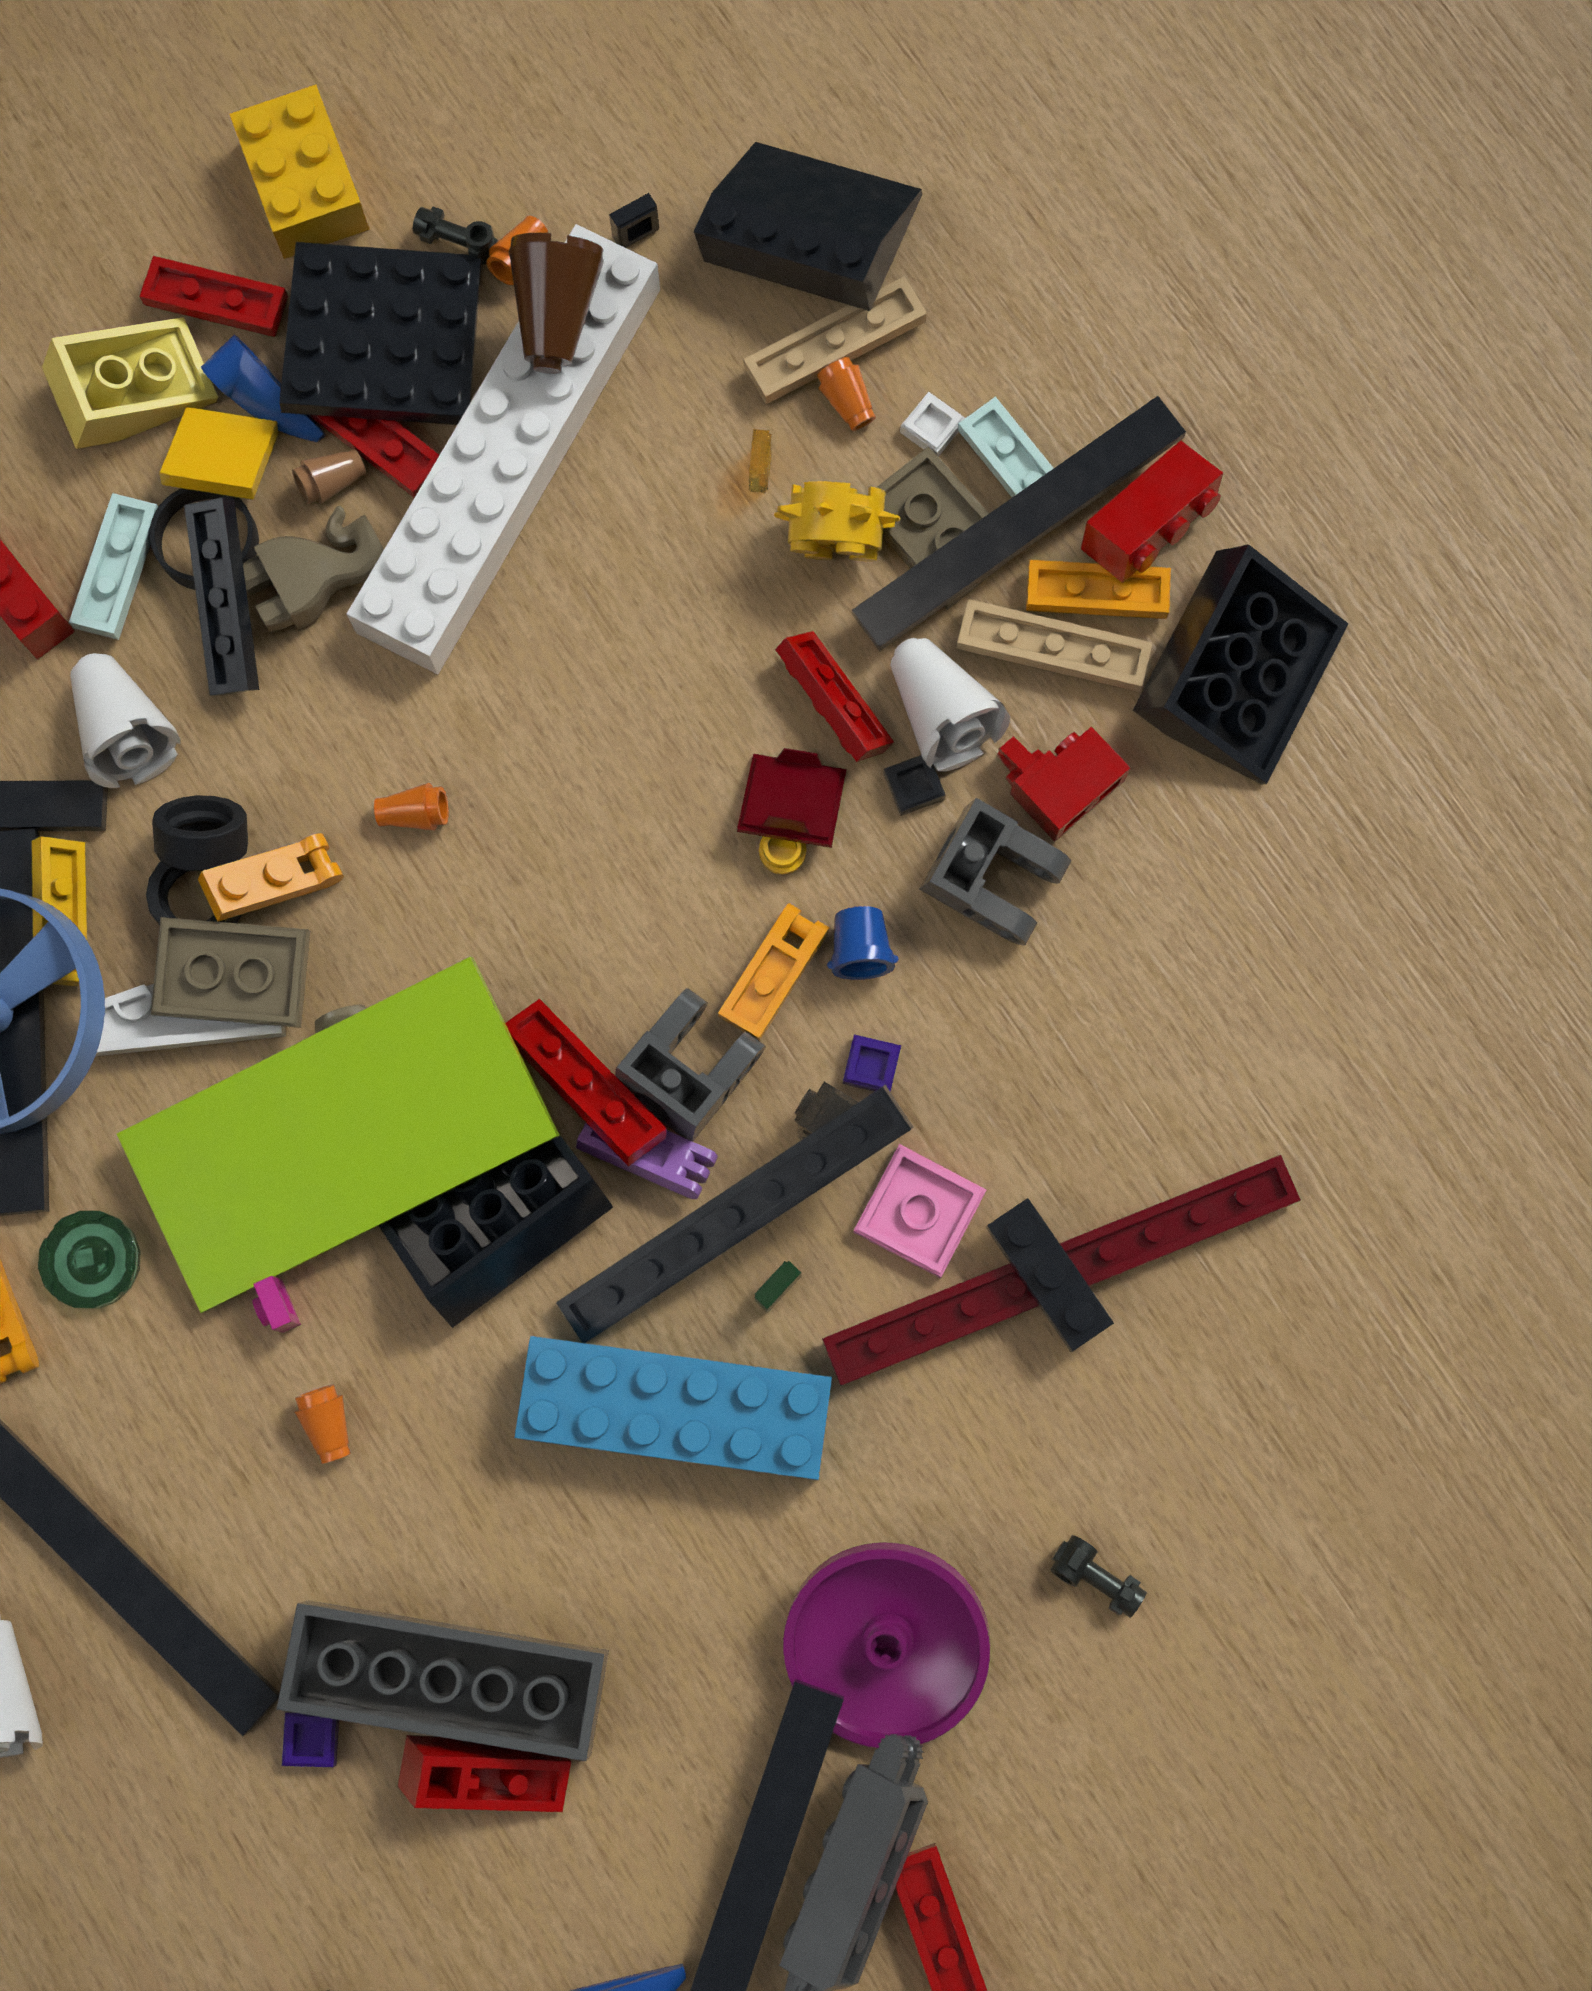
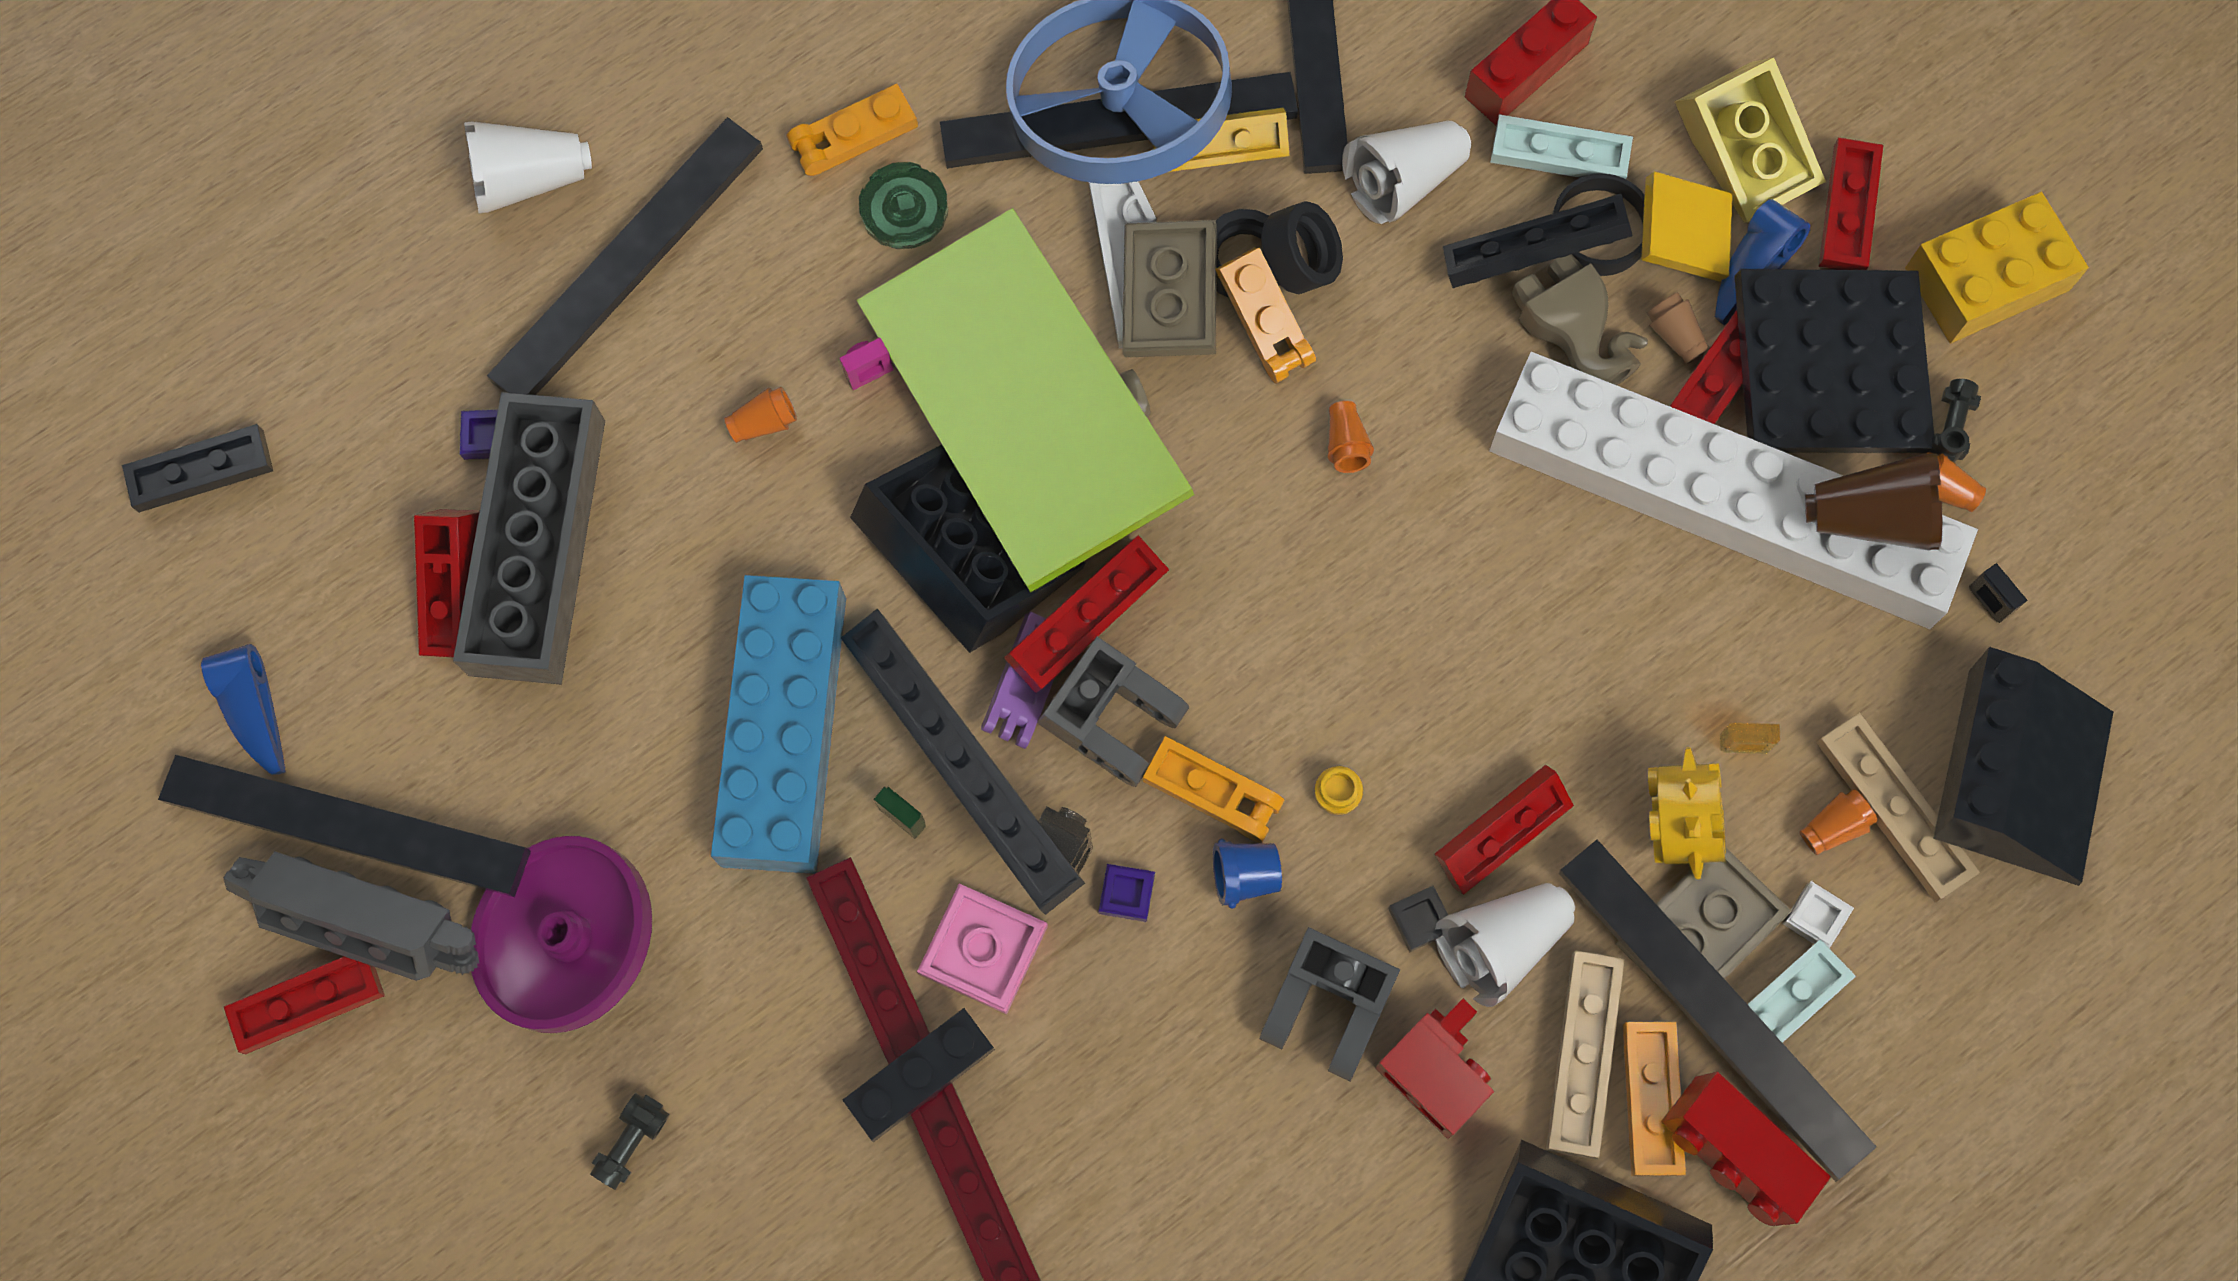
camera: 90 degrees right, 5 degrees down
(792, 798) = (1391, 795): dark red piece -> none

